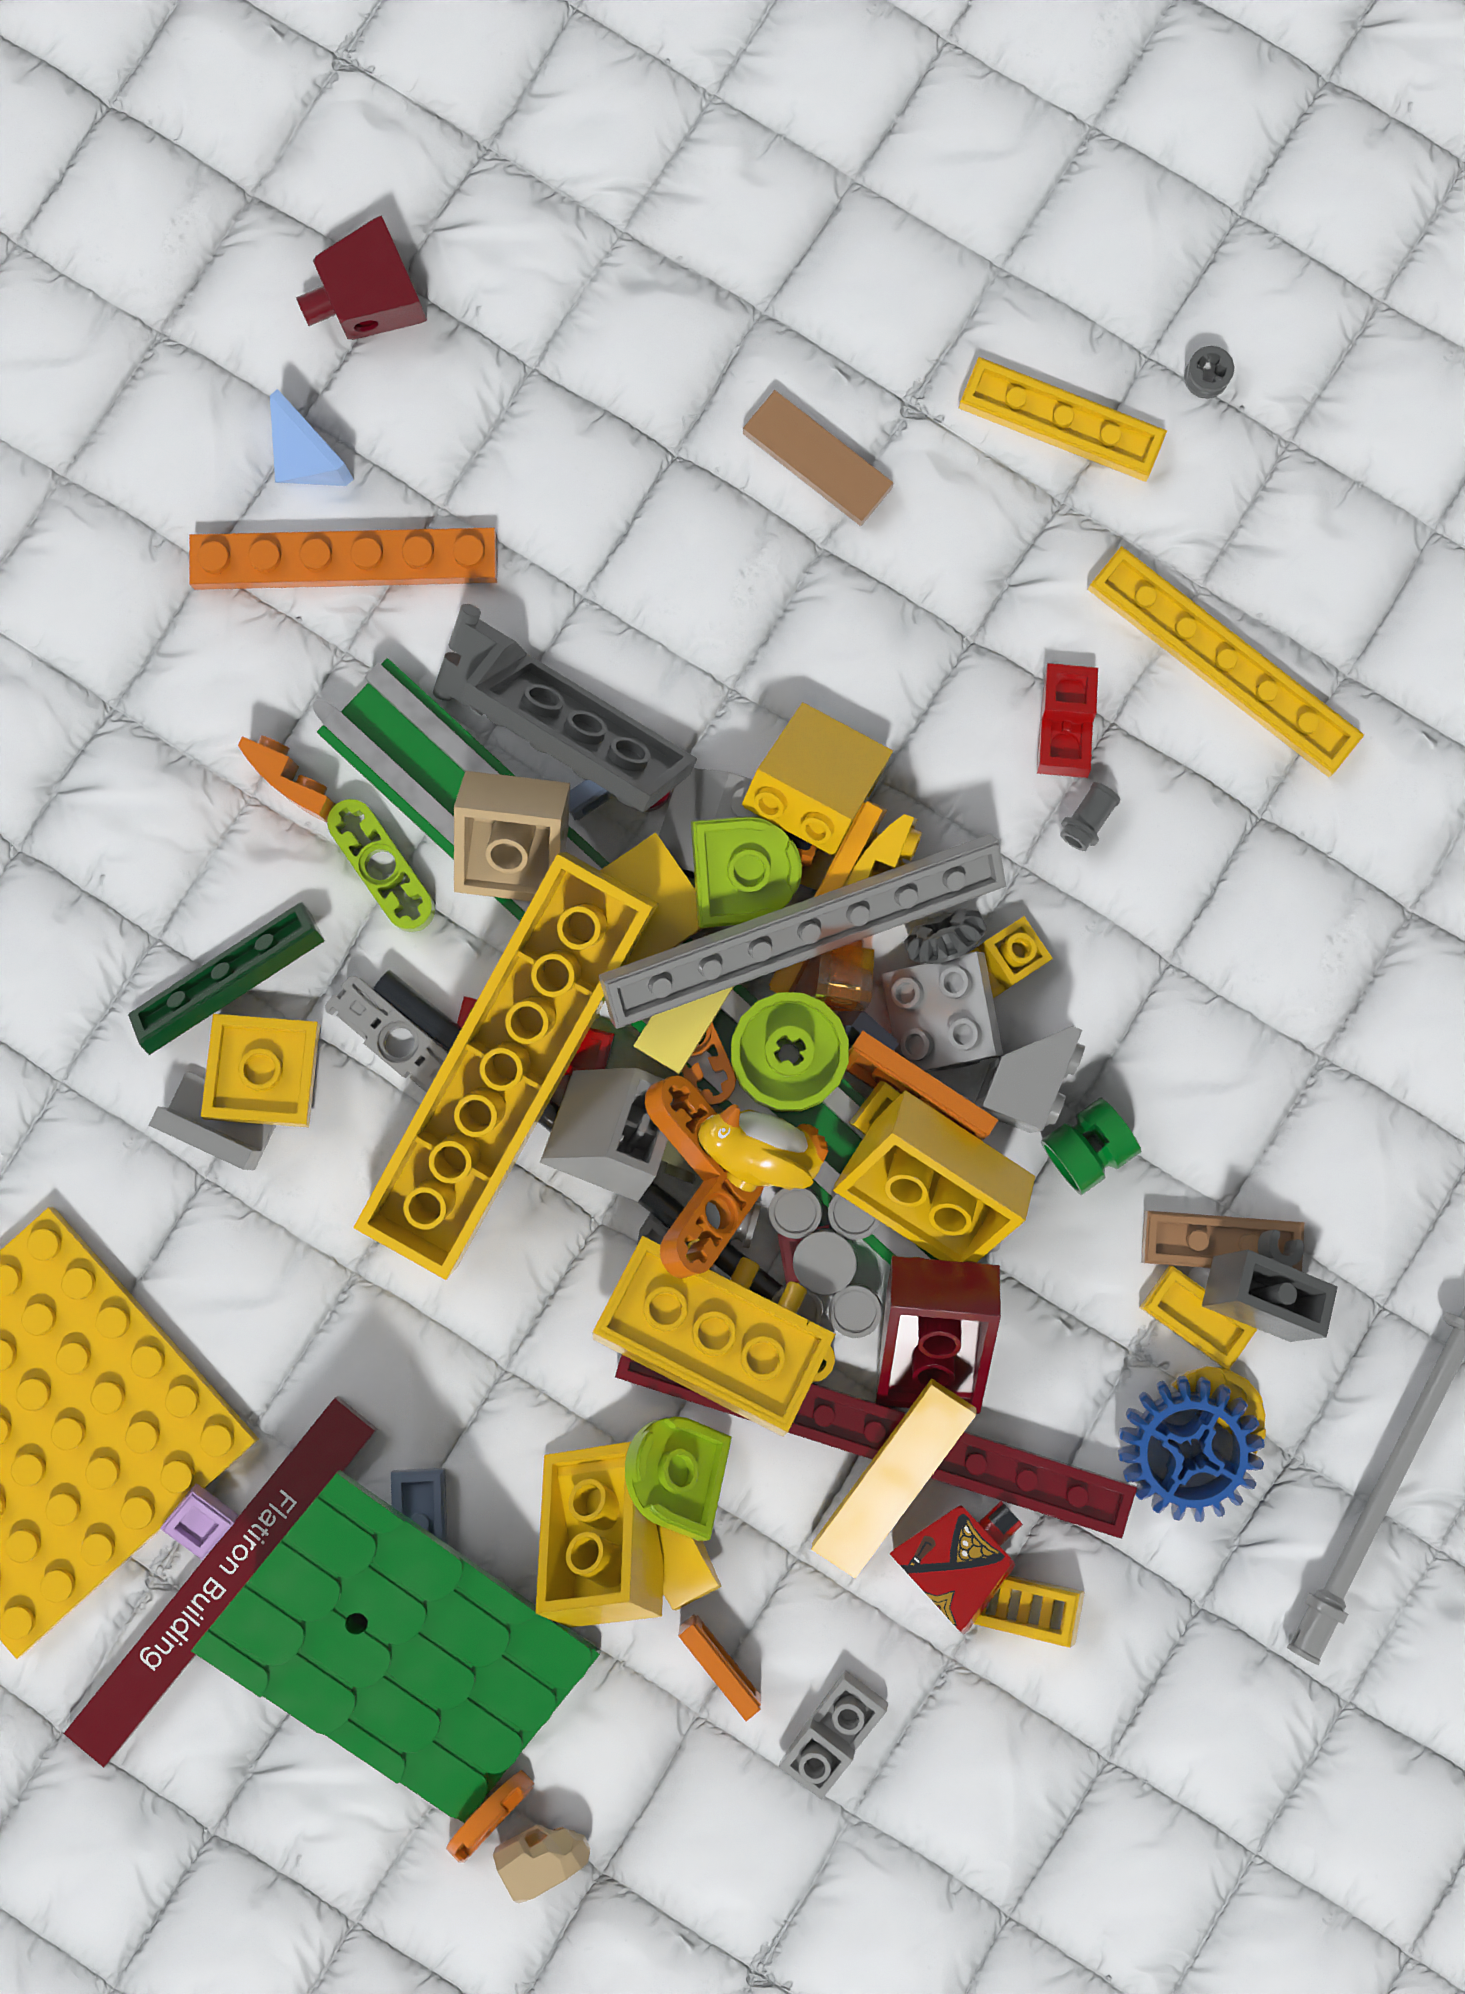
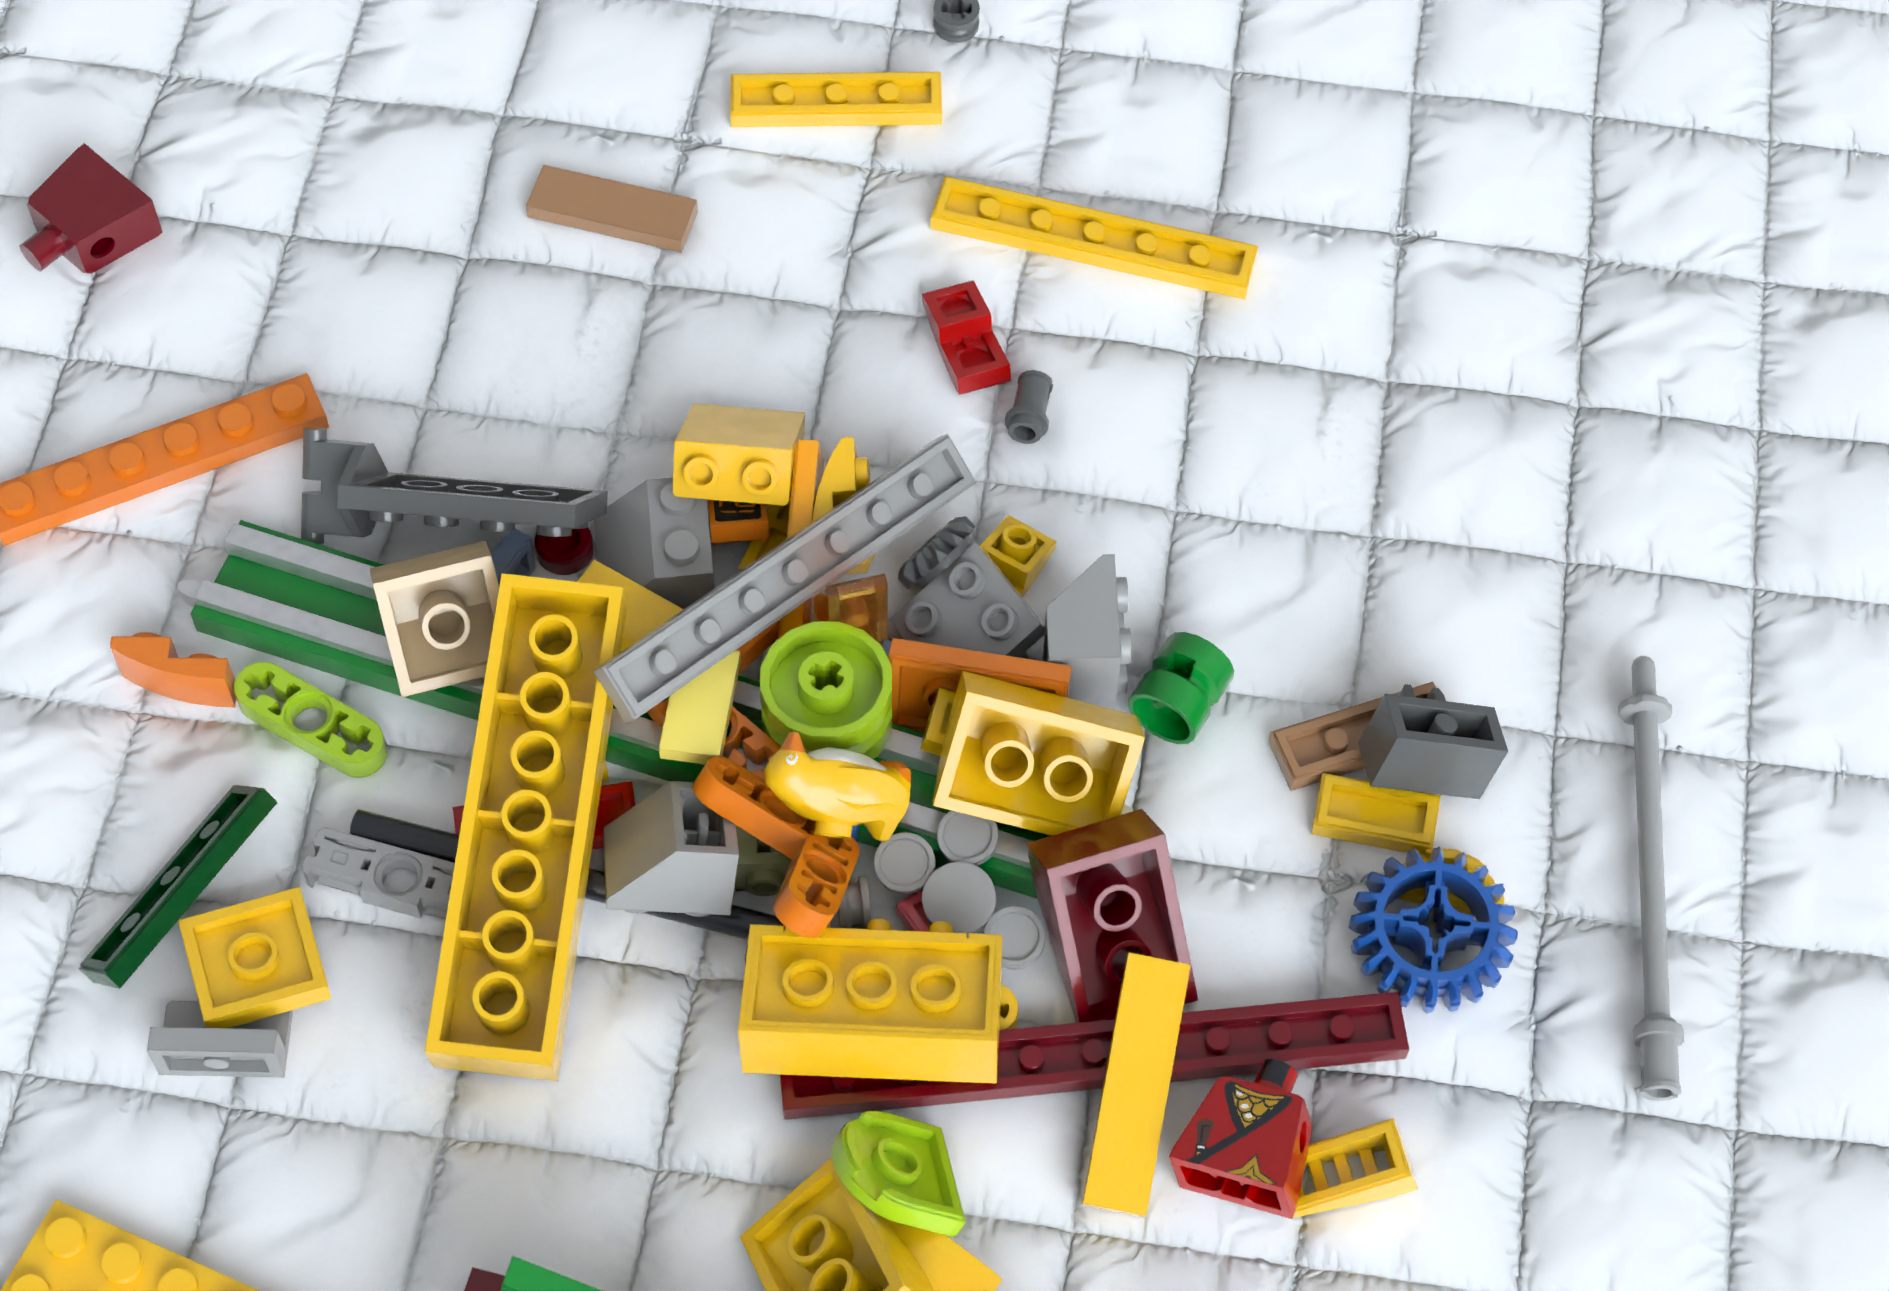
camera: 30 degrees left, 25 degrees down
(300, 451) = (79, 373): light blue slope -> none
(742, 869) = (695, 545): lime tile -> none

